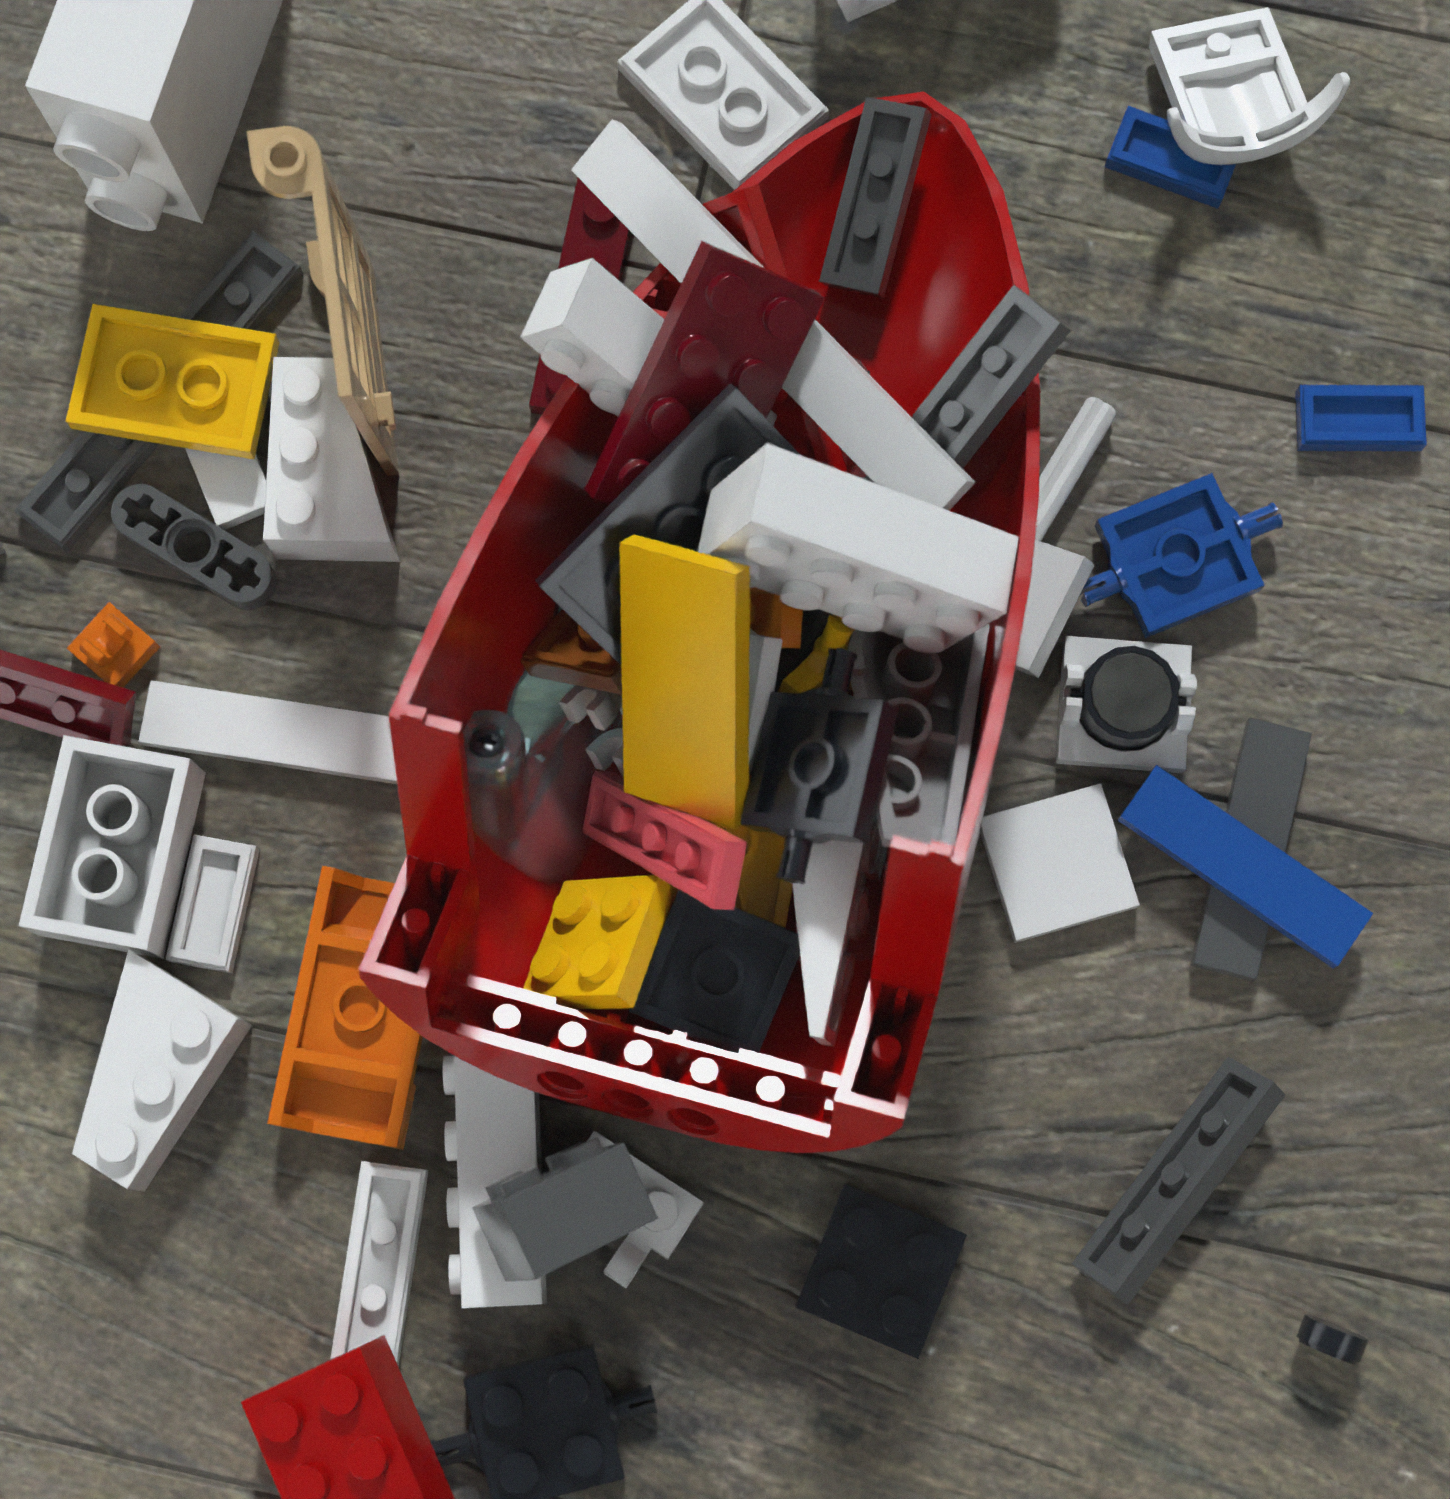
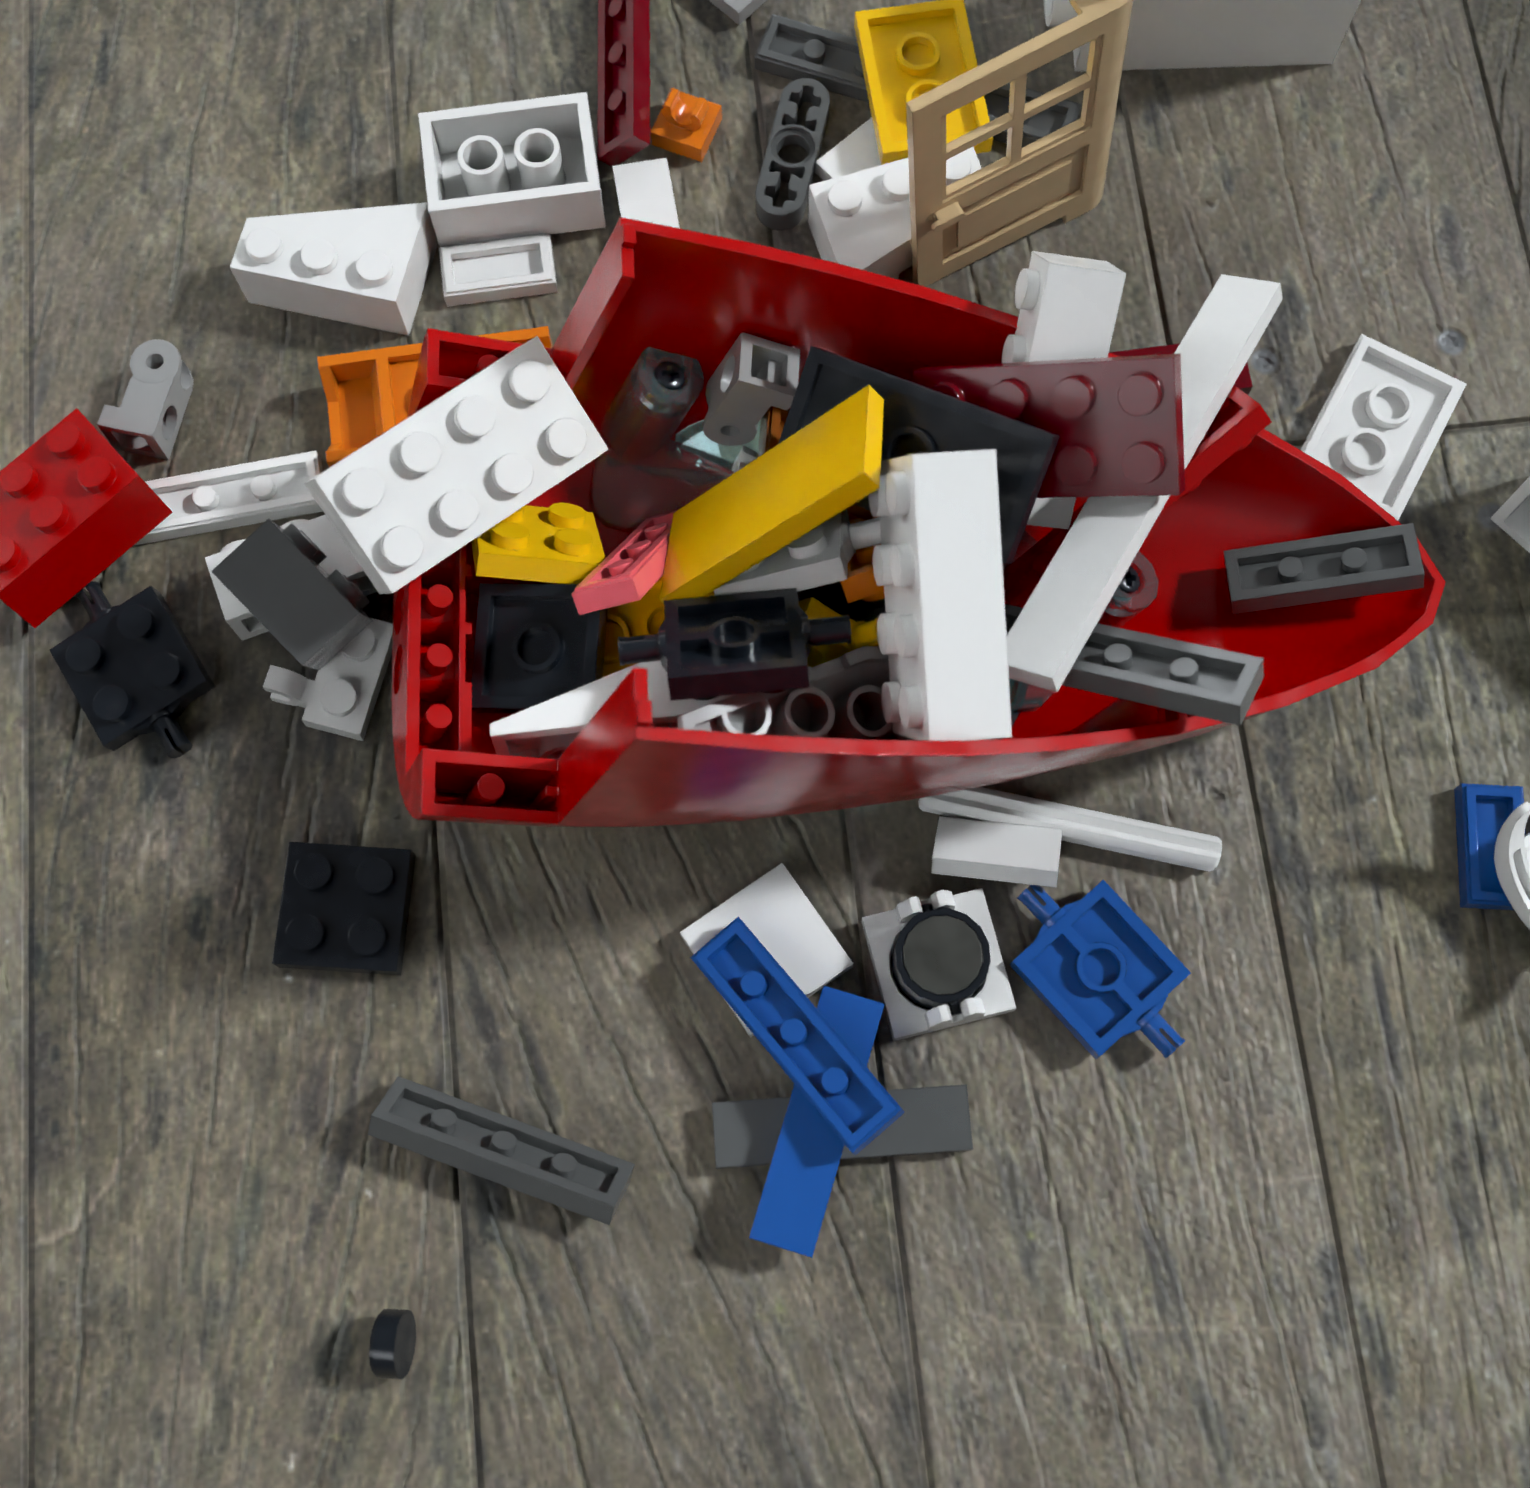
camera: 70 degrees right, 5 degrees down
(241, 1323) = (152, 402): none -> light grey leg
(524, 667) = (746, 385): none -> light grey leg
(529, 984) = (457, 467): none -> white brick
(1162, 857) = (797, 1036): none -> blue tile
(1360, 418) = (1307, 1106): blue tile -> none

